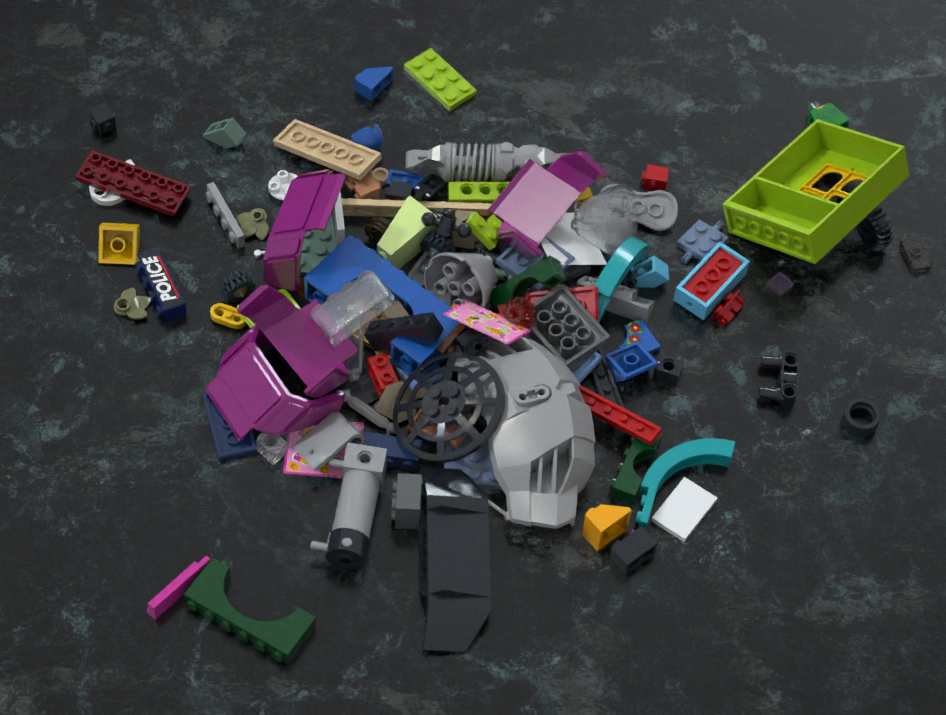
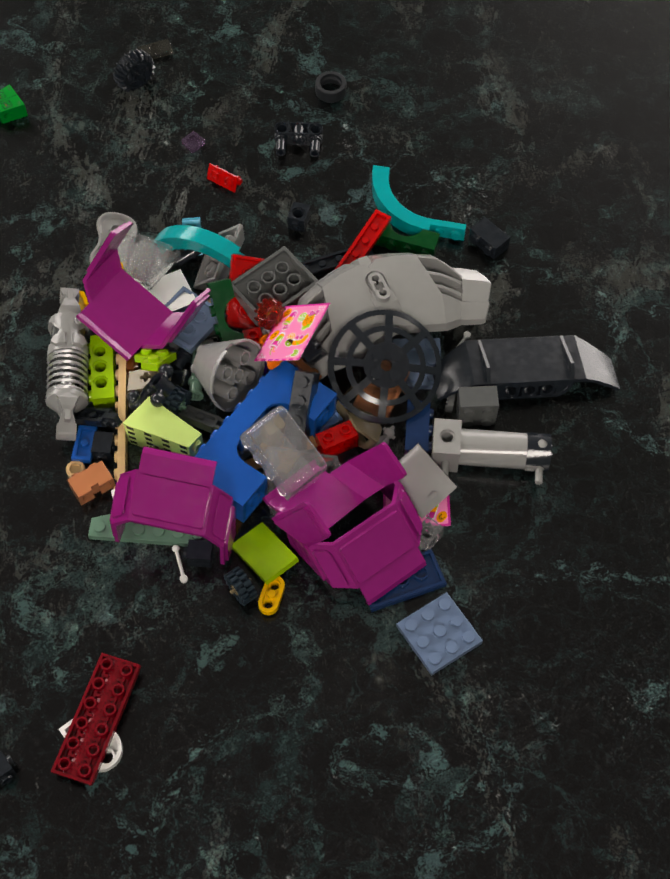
camera: 90 degrees left, 5 degrees up
(118, 243) = (181, 722): yellow slope -> none
(134, 304) = (262, 695): olive plate -> none
(161, 284) = (236, 668): brick -> none
(170, 447) = (439, 633): none -> sand blue plate
(175, 589) = (605, 601): dark pink piece -> none
(225, 133) = (20, 629): sand green slope -> none
(227, 219) = (134, 615): light grey plate -> none
(251, 225) = (149, 588): olive plate -> none
(278, 637) = (606, 569): dark green arch -> none
(280, 183) = (93, 558): white dish -> none
(327, 149) = (49, 516): tan plate -> none
(369, 137) = (35, 481): blue cylinder -> none
(605, 524) = (476, 252): light orange slope -> none
(629, 361) = (299, 240): blue slope -> none
(639, 332) = (264, 242): blue tile -> none
(655, 178) = (77, 231): red brick -> none
(684, 509) = (438, 204): white tile -> none
(701, 240) = (149, 197): sand blue plate -> none
(711, 280) = (199, 185): brick -> none
(776, 201) = (134, 121): lime panel -> none

